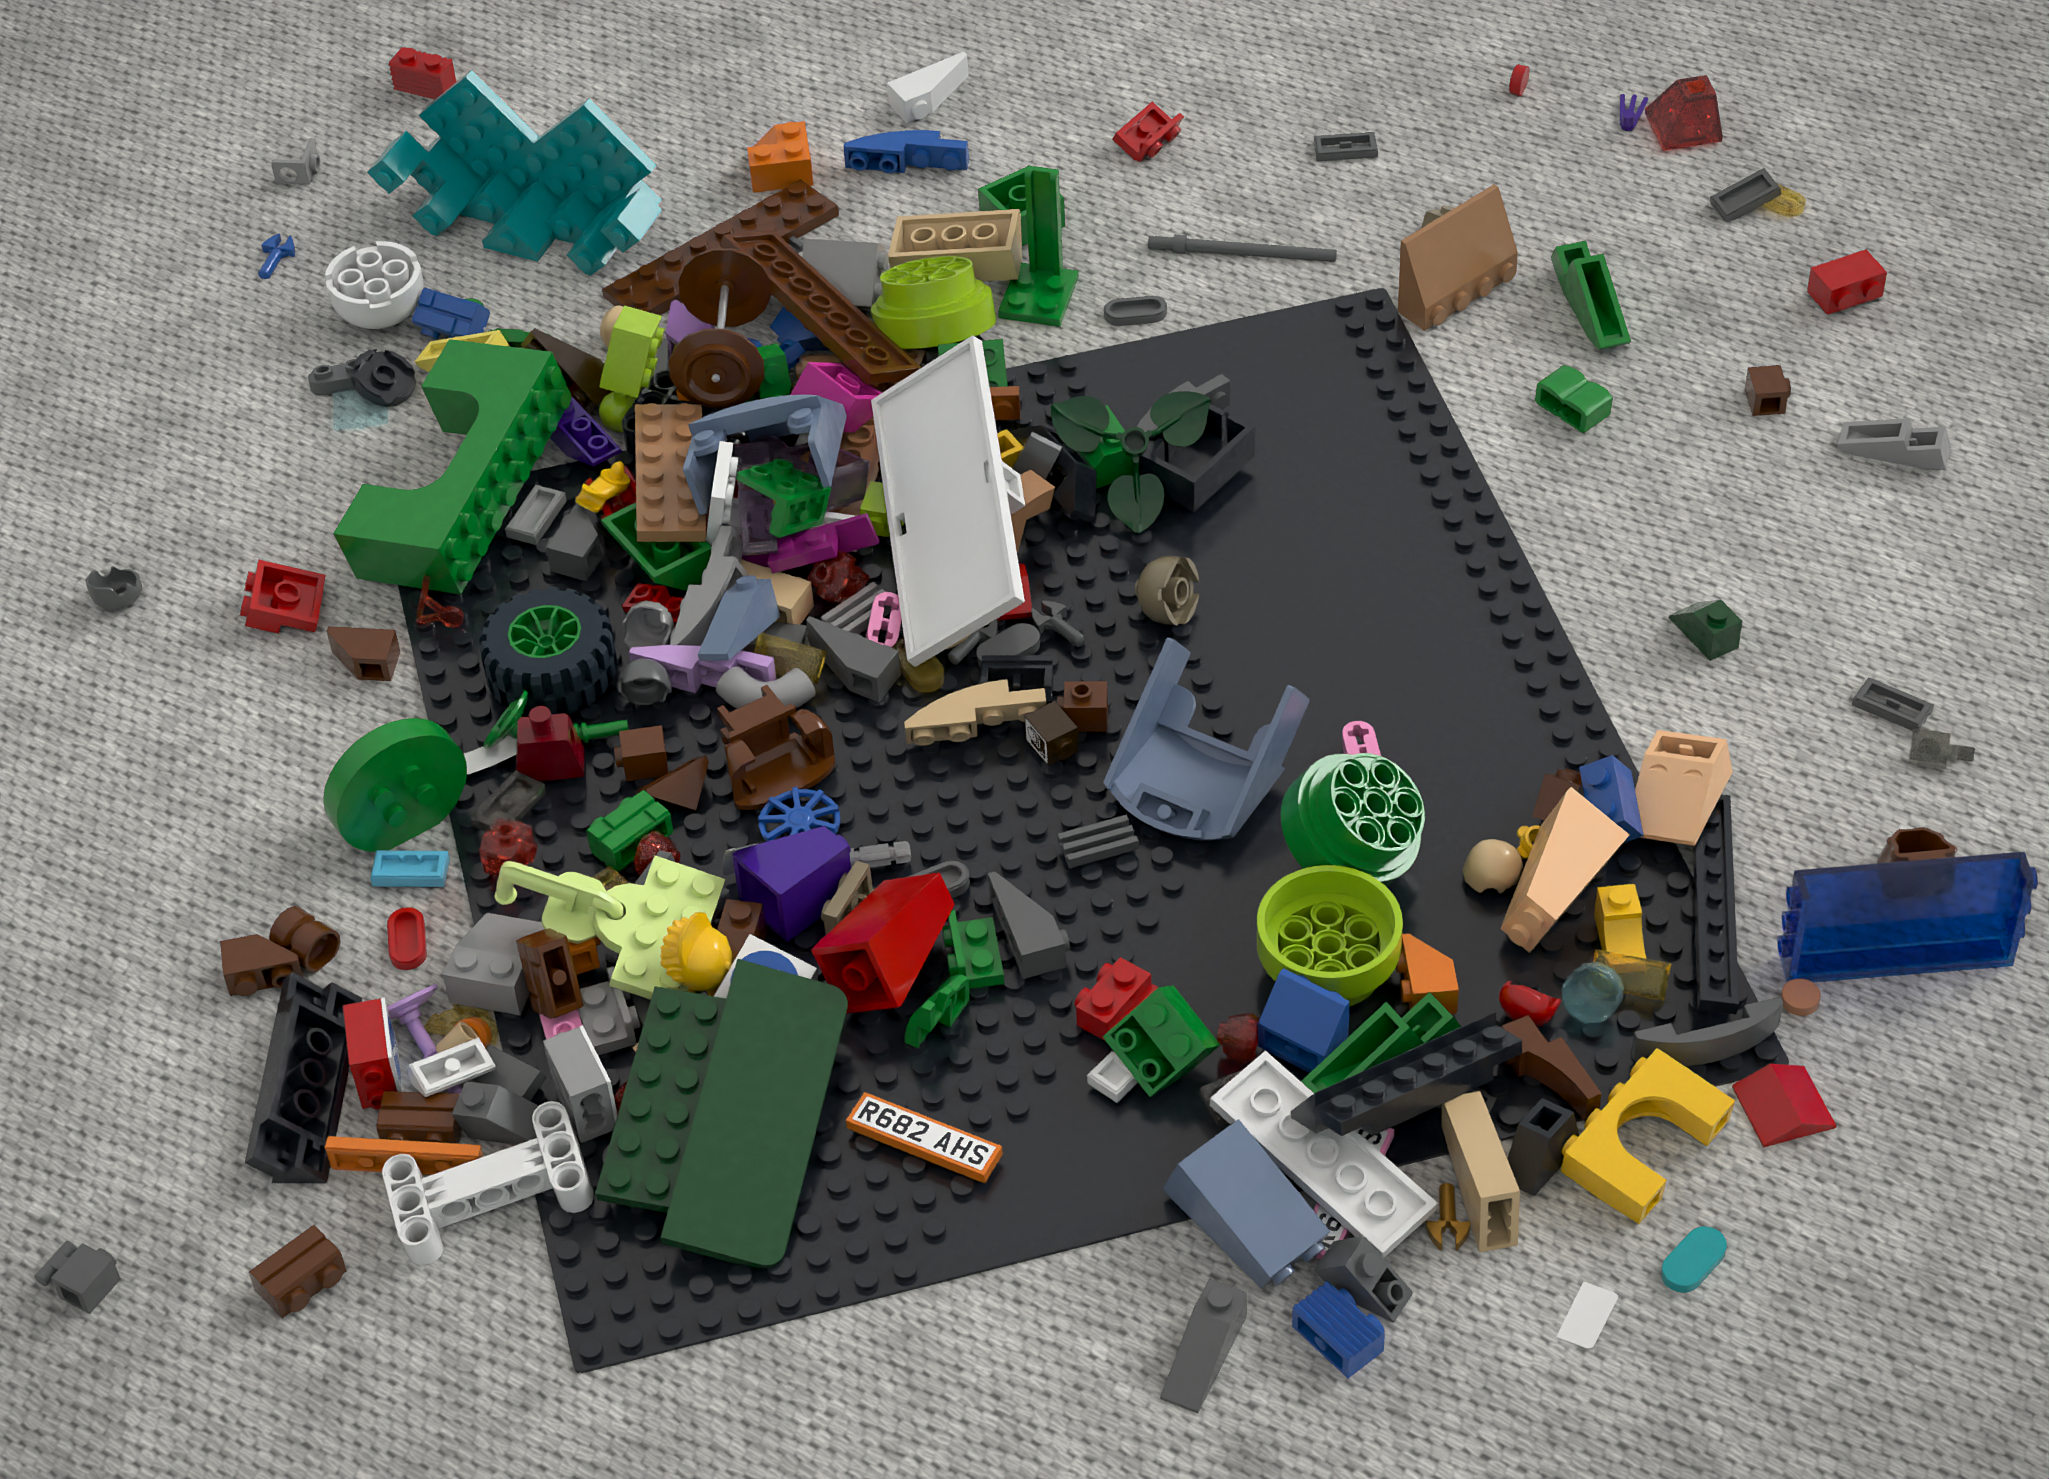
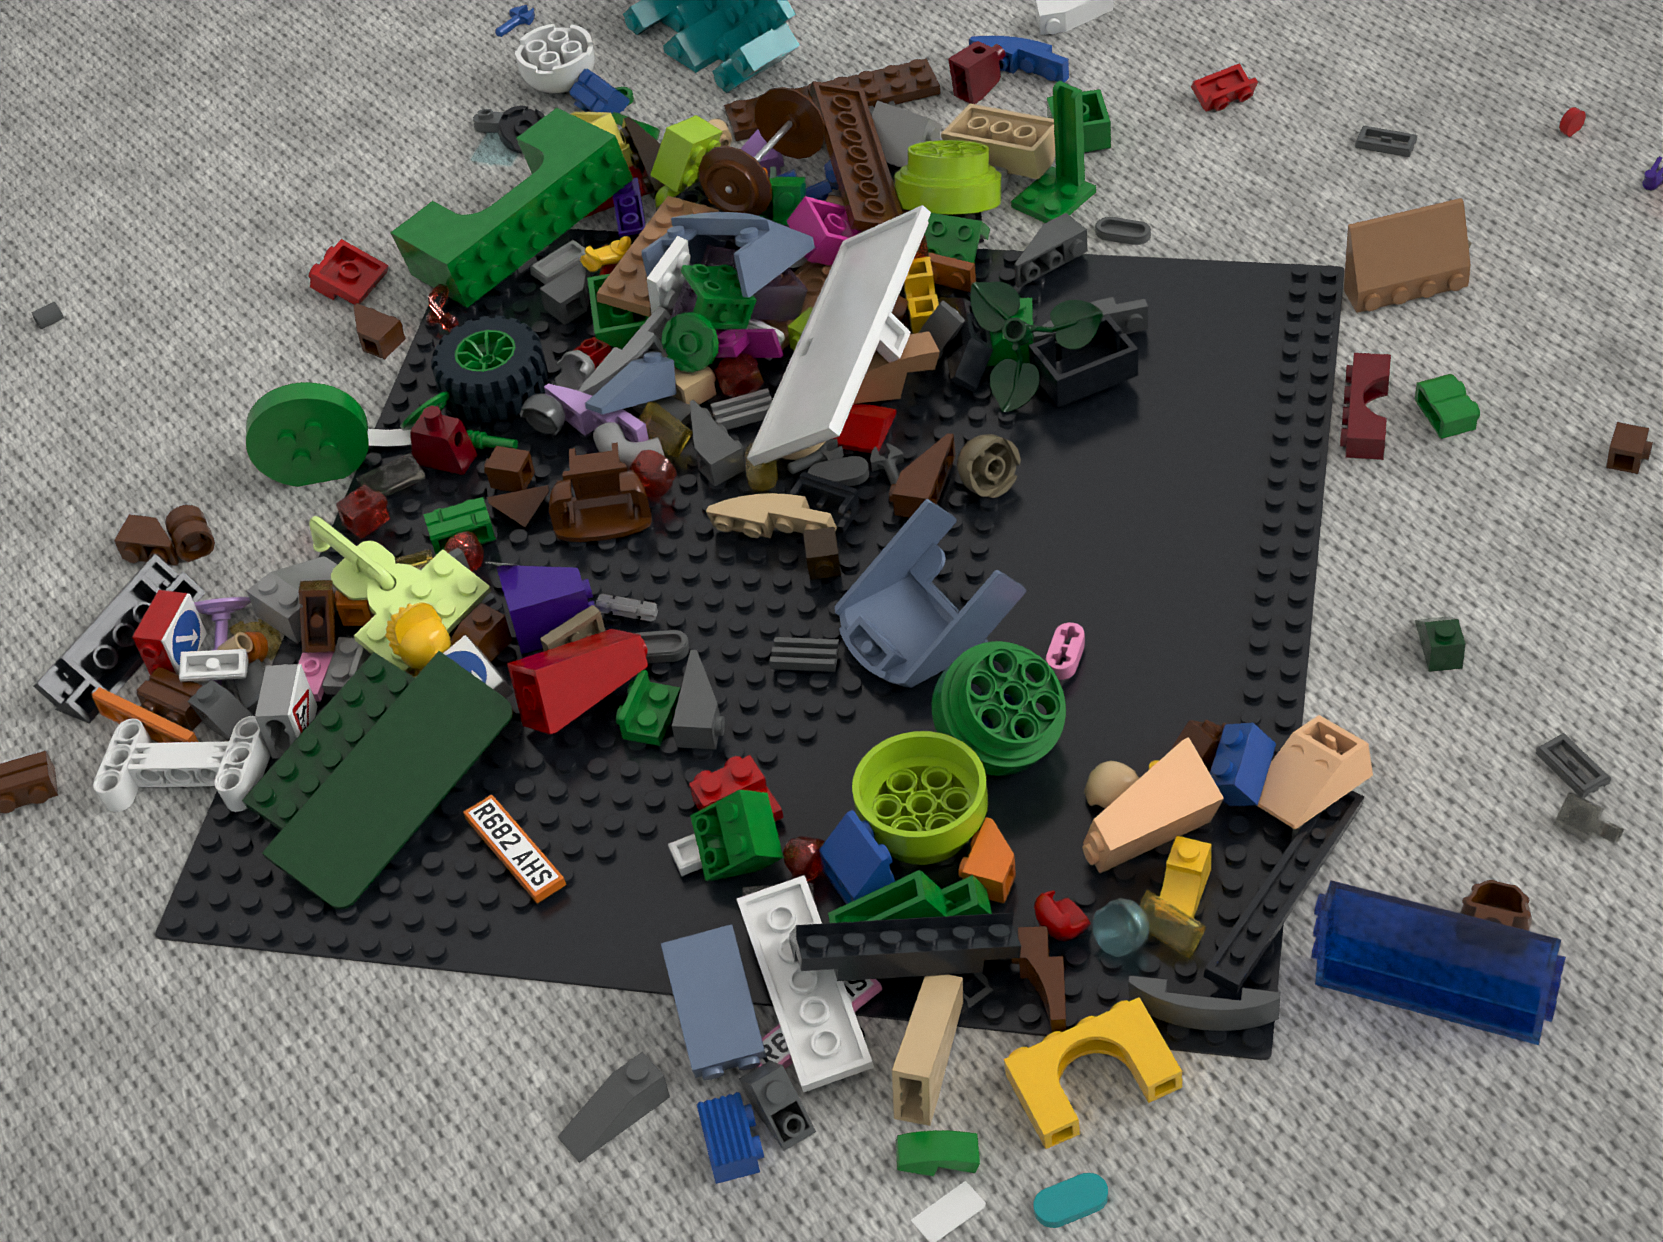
camera: 30 degrees right, 0 degrees up
(106, 589) = (241, 234): dark grey hair -> none
(406, 938) = (263, 557): red tile -> none
(410, 868) = (298, 503): medium azure plate -> none
(780, 158) = (919, 39): orange slope -> none
(780, 553) = (690, 341): none -> green tile
(798, 818) = (592, 560): blue wheel -> none
(819, 699) = (654, 472): none -> clear red hair
(874, 180) = (975, 71): none -> dark red torso
(877, 622) = (747, 421): bright pink beam -> none
(941, 1007) = (597, 744): green slope -> none
(1086, 341) = (1050, 248): none -> dark grey slope
(1086, 704) = (862, 538): reddish brown brick -> none
(1108, 630) = (923, 478): none -> reddish brown slope
(1181, 244) = (1194, 185): dark grey bar -> none
(1447, 1219) = (883, 1080): pearl gold bar -> none
(1511, 447) = (1365, 429): none -> dark red arch
(1539, 1145) = (990, 1043): black slope -> none
(1541, 1264) = (927, 1150): none -> green slope
(1591, 294) = (1516, 320): green slope -> none
(1782, 1104) = (1241, 1091): red slope -> none
(1800, 997) = (1317, 1000): nougat tile -> none

